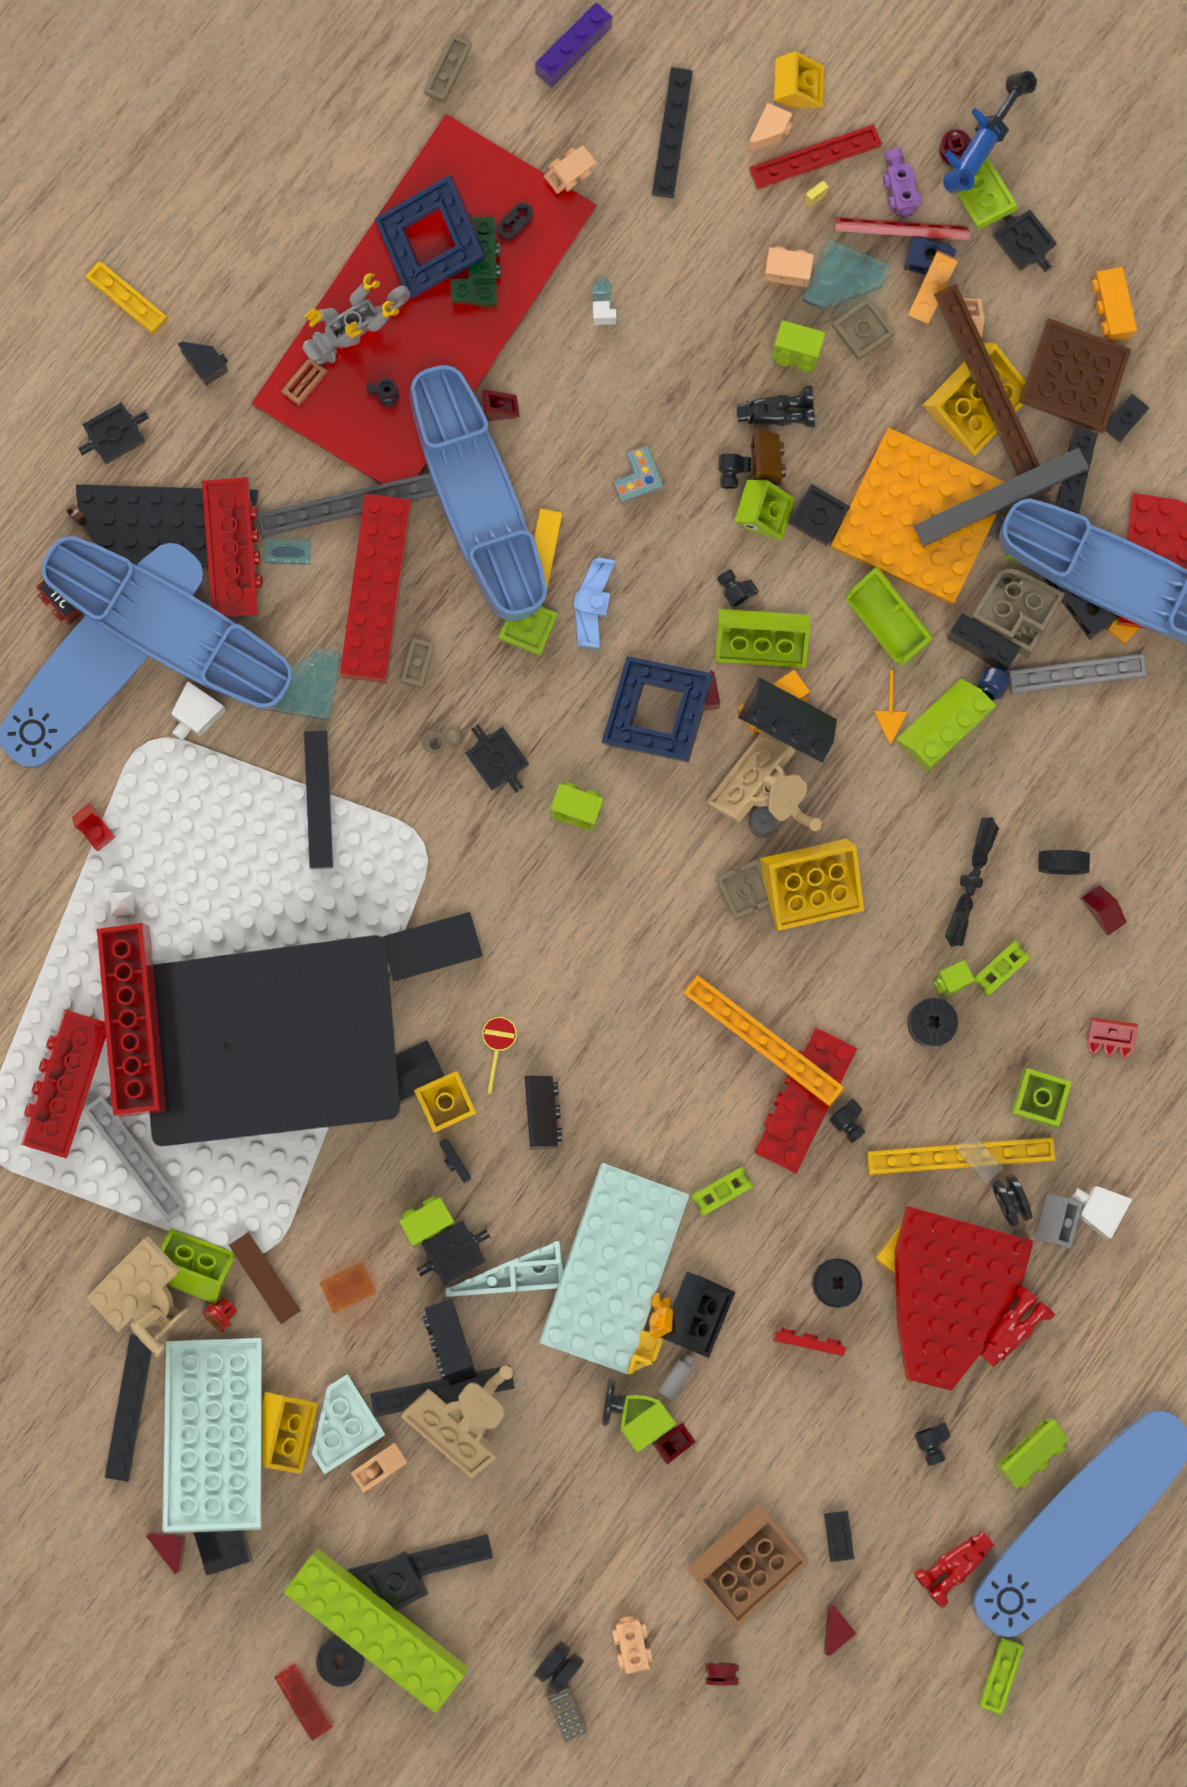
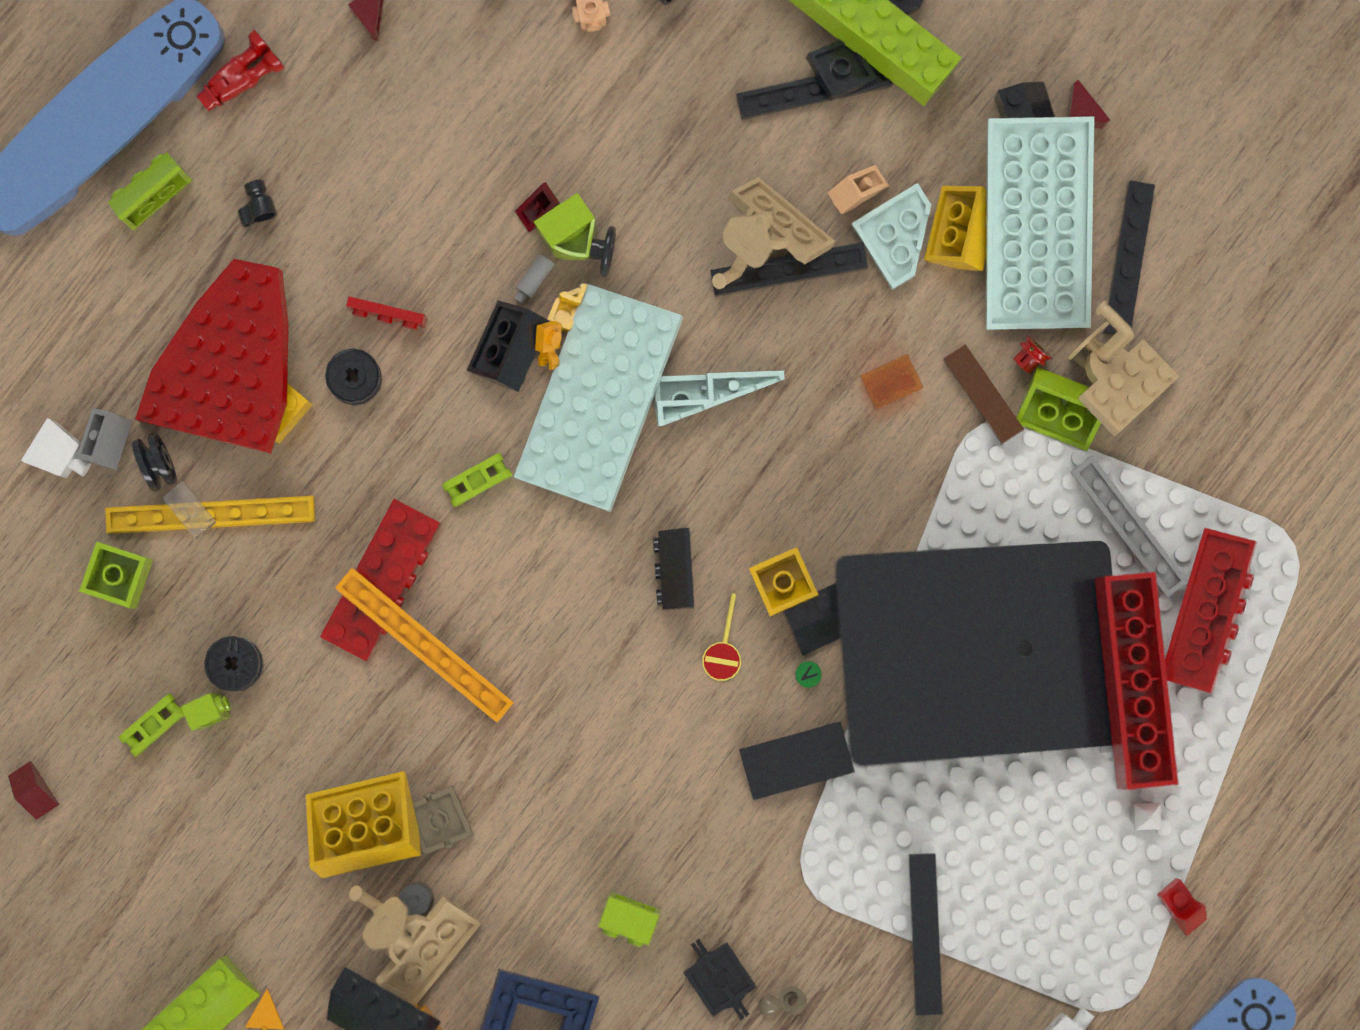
camera: 170 degrees left, 5 degrees up
(422, 1023) = (808, 674): none -> green tile
(426, 1221) = (804, 450): lime brick -> none
(449, 1342) = (781, 317): black brick -> none
(453, 1252) = (775, 418): black plate -> none
(454, 1162) = (773, 517): black plate -> none
(747, 1565) = (463, 79): medium nougat slope -> none
(838, 1536) = (363, 108): black plate -> none
(845, 1120) = (337, 555): black piece -> none
(959, 922) = (180, 825): black piece -> none
(1012, 1331) = (164, 321): red piece -> none
(1064, 862) = (72, 844): black tyre -> none
(1111, 1035) = (32, 646): plate -> none

